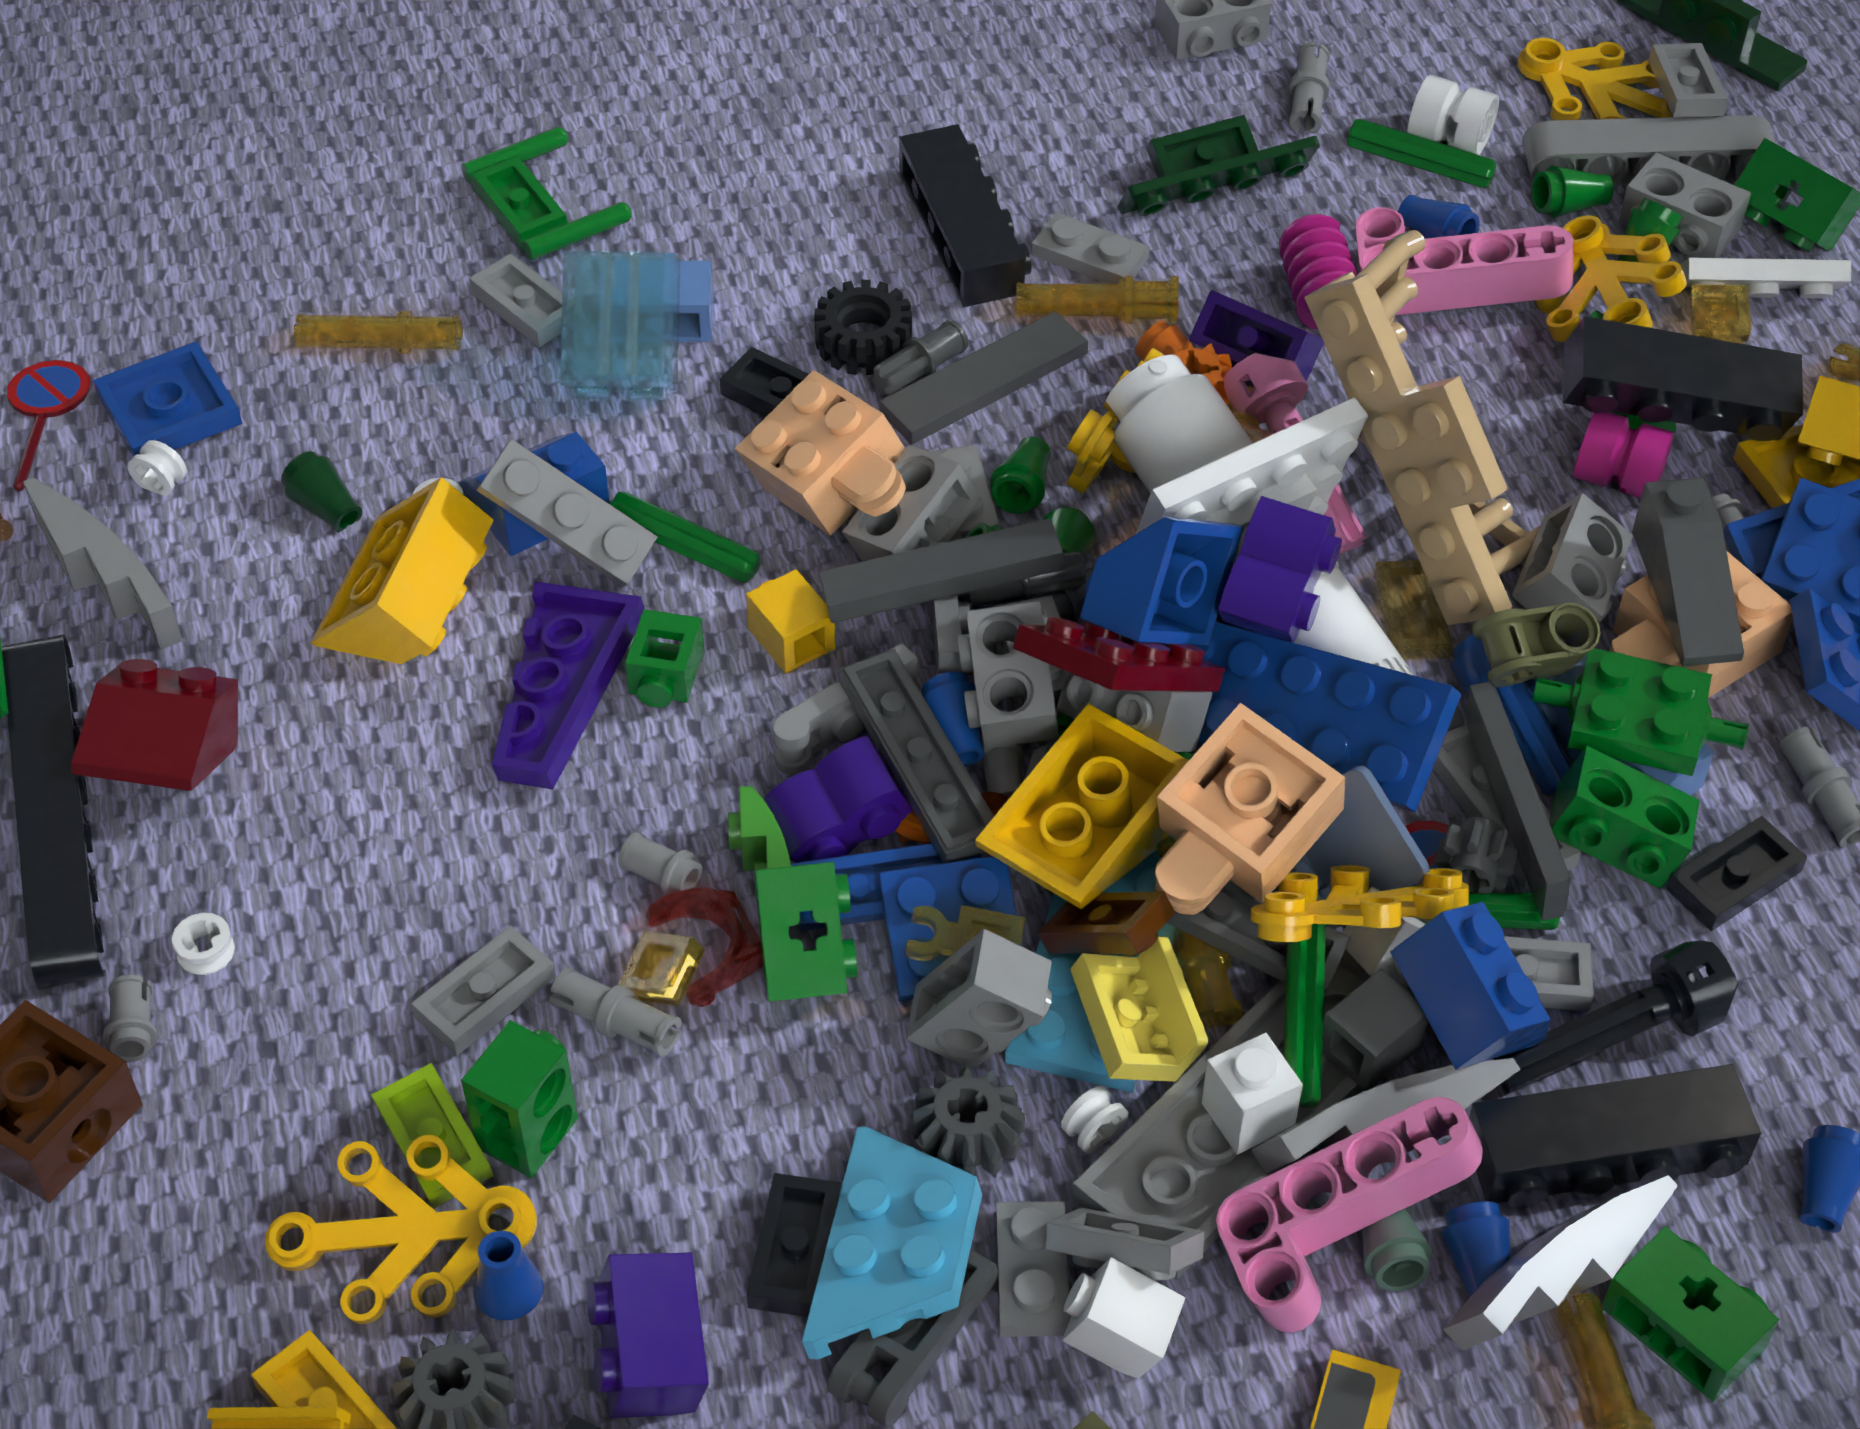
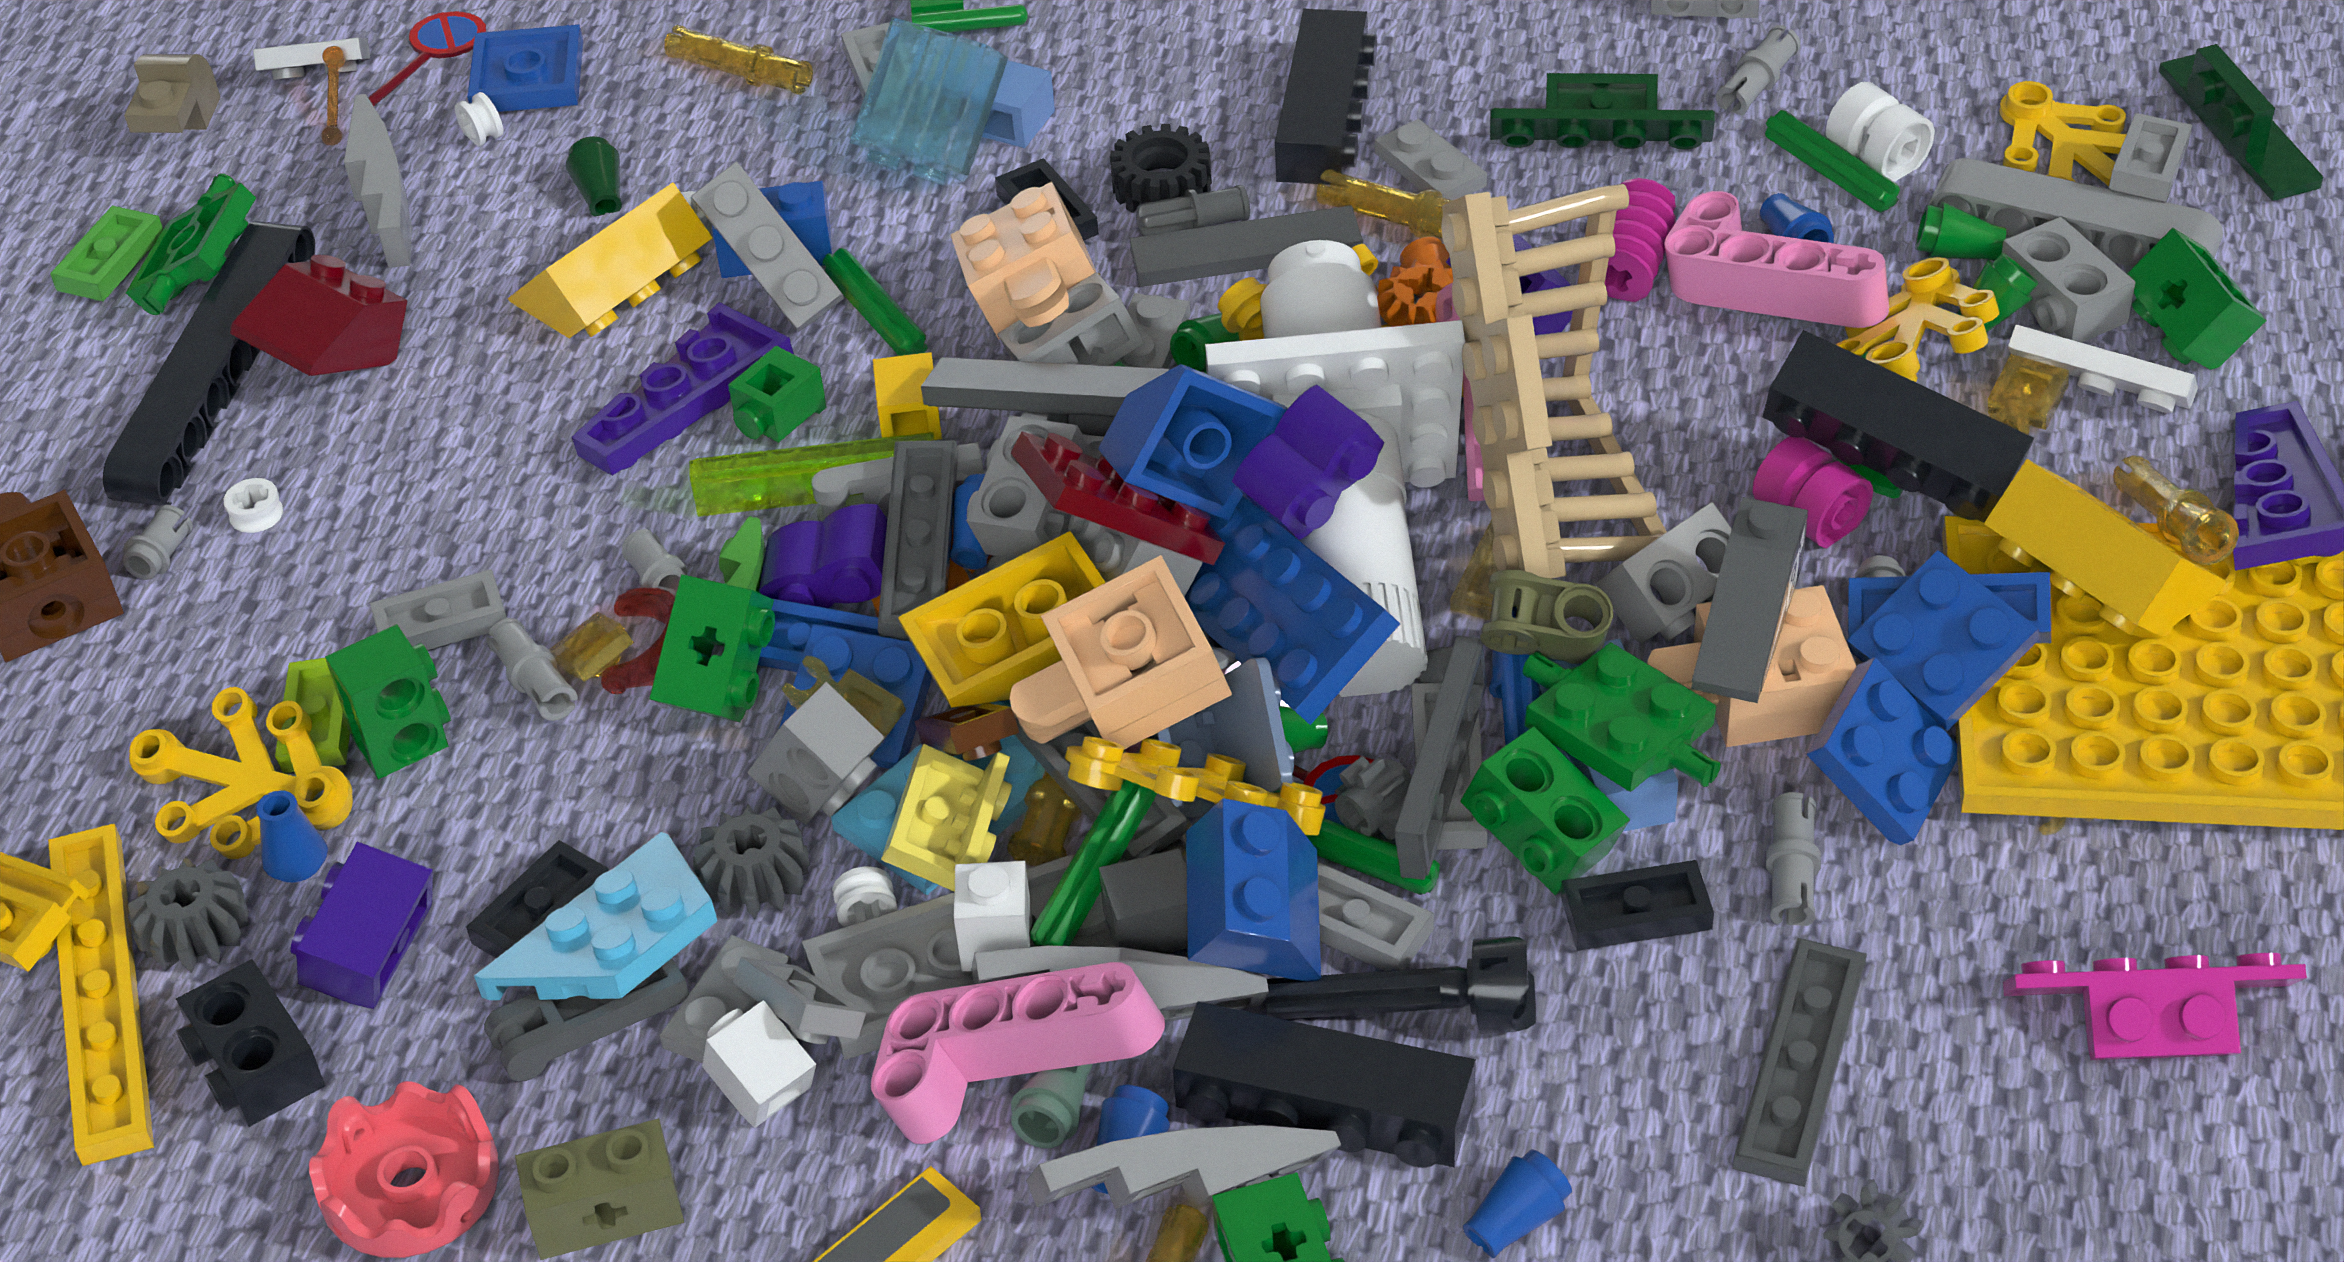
camera: 30 degrees right, 5 degrees down
(729, 726) = (779, 475): none -> clear neon green fence

